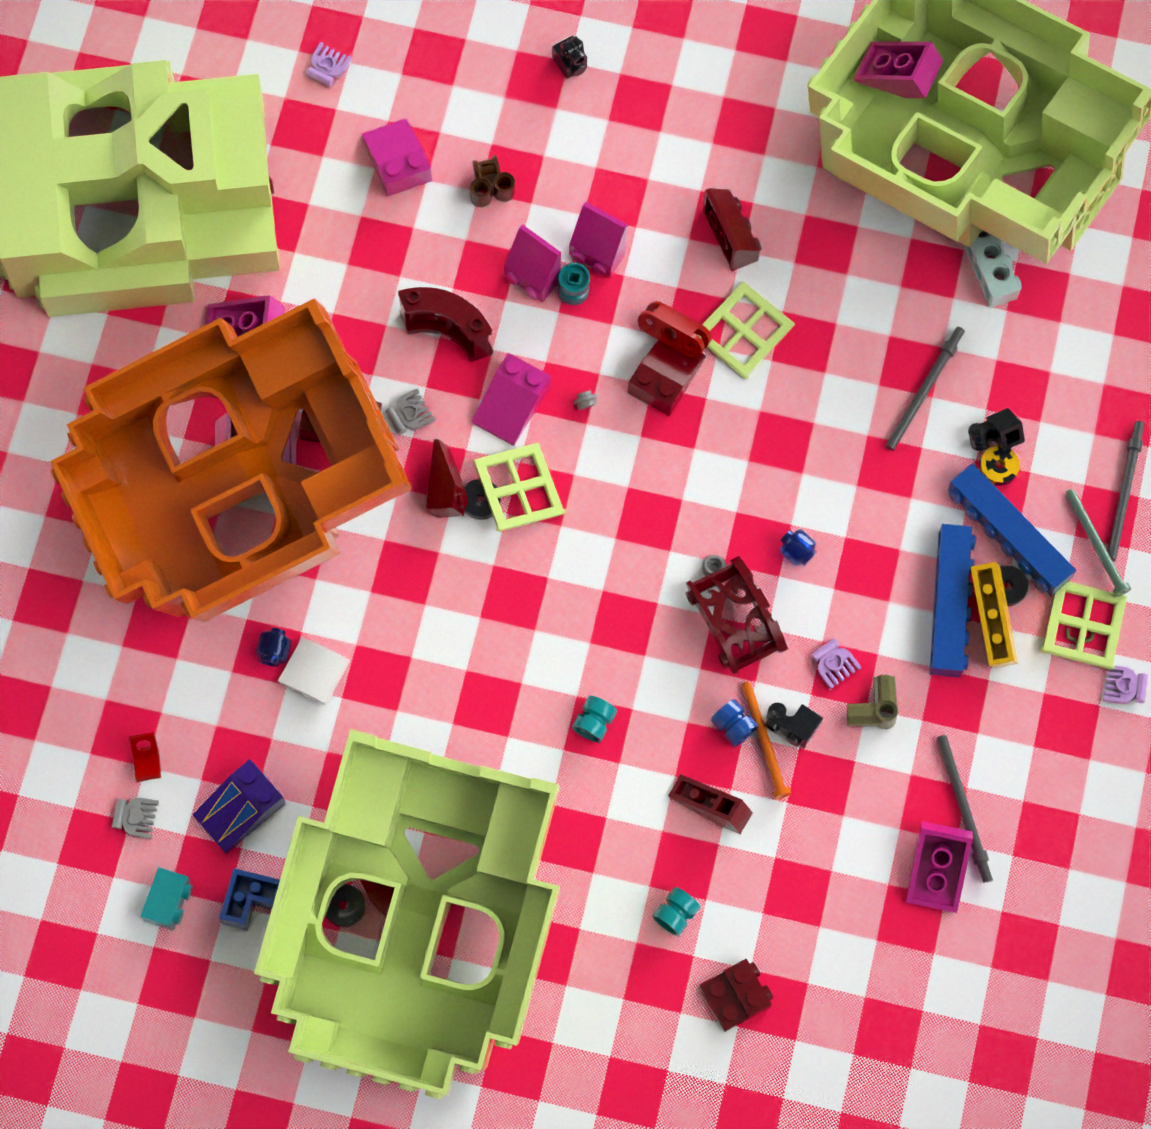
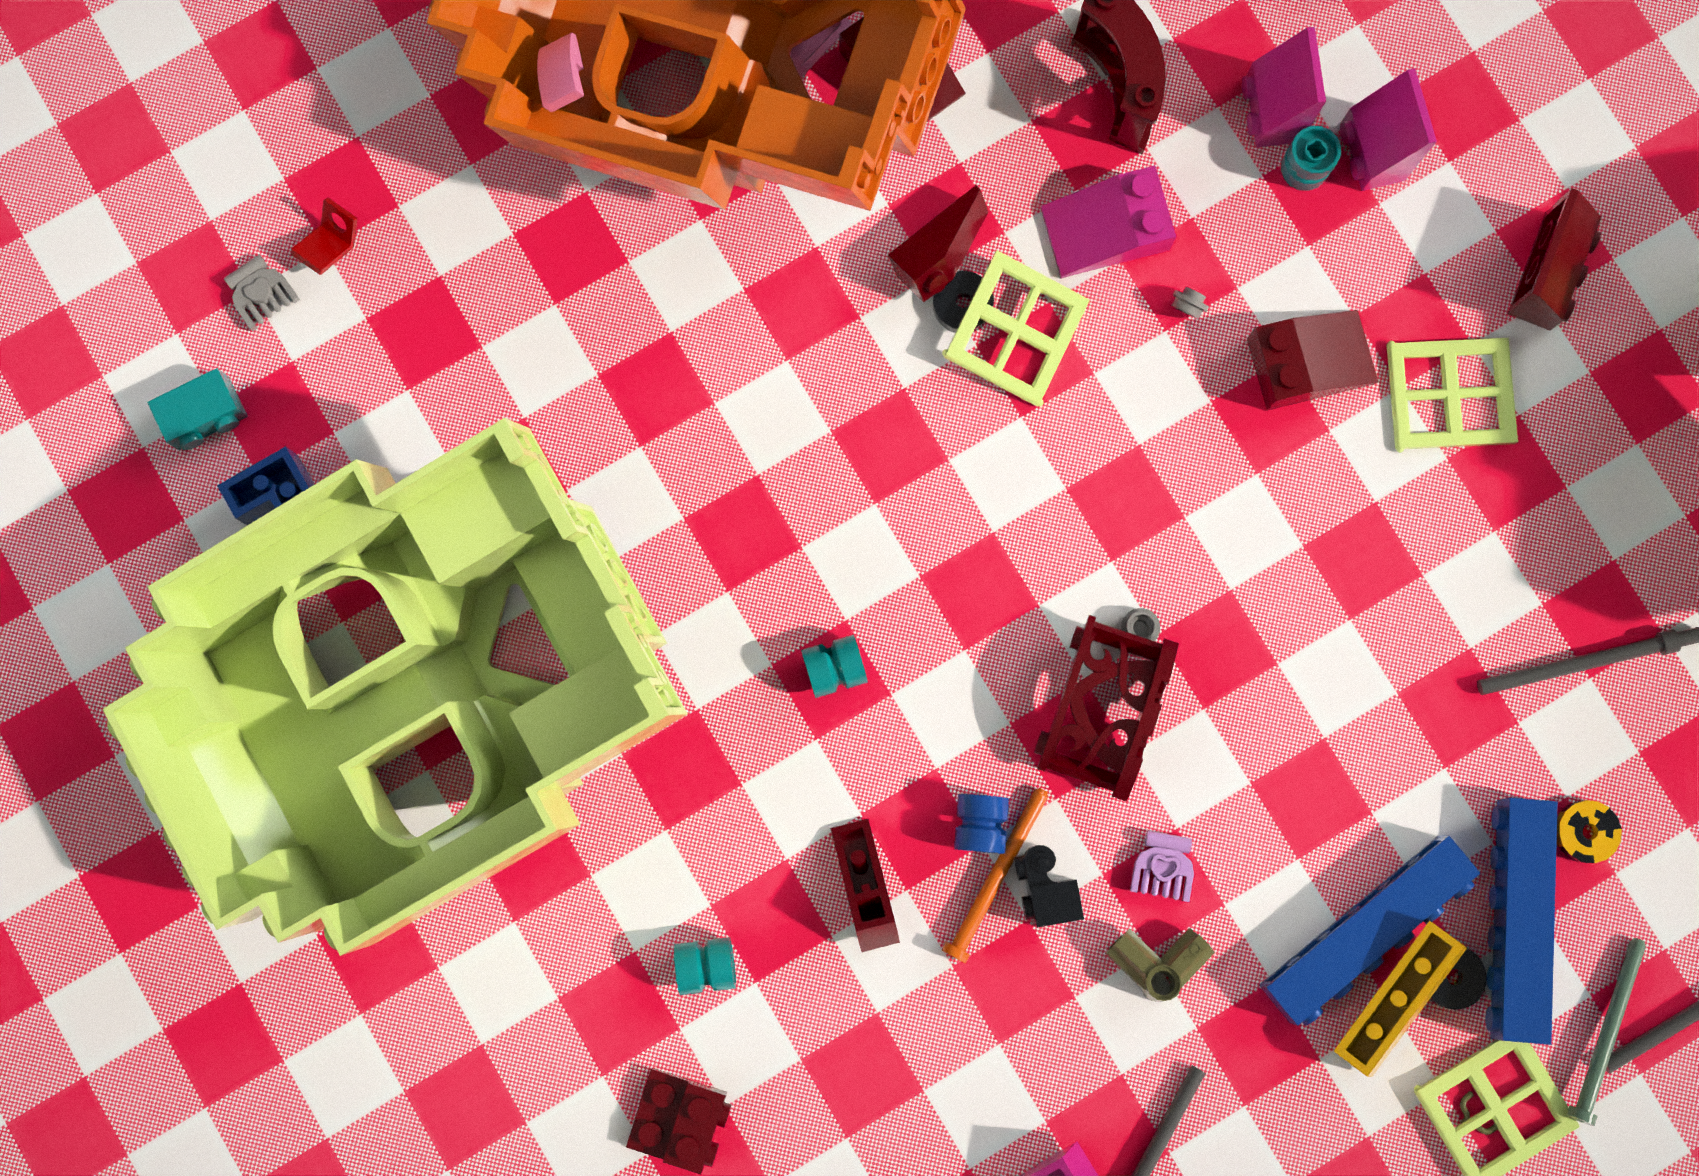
camera: 50 degrees right, 10 degrees up
(194, 566) = (558, 72): none -> bright pink slope
(239, 806) = (372, 385): dark purple slope -> none
(273, 647) = (577, 248): clear blue head -> none
(314, 671) = (594, 316): white slope -> none
(353, 913) = (356, 611): black piece -> none
(407, 413) = (979, 130): light grey piece -> none
(674, 329) = (1372, 317): red piece -> none
(798, 547) = (1257, 698): clear blue head -> none
(1001, 428) = (1635, 794): black brick -> none

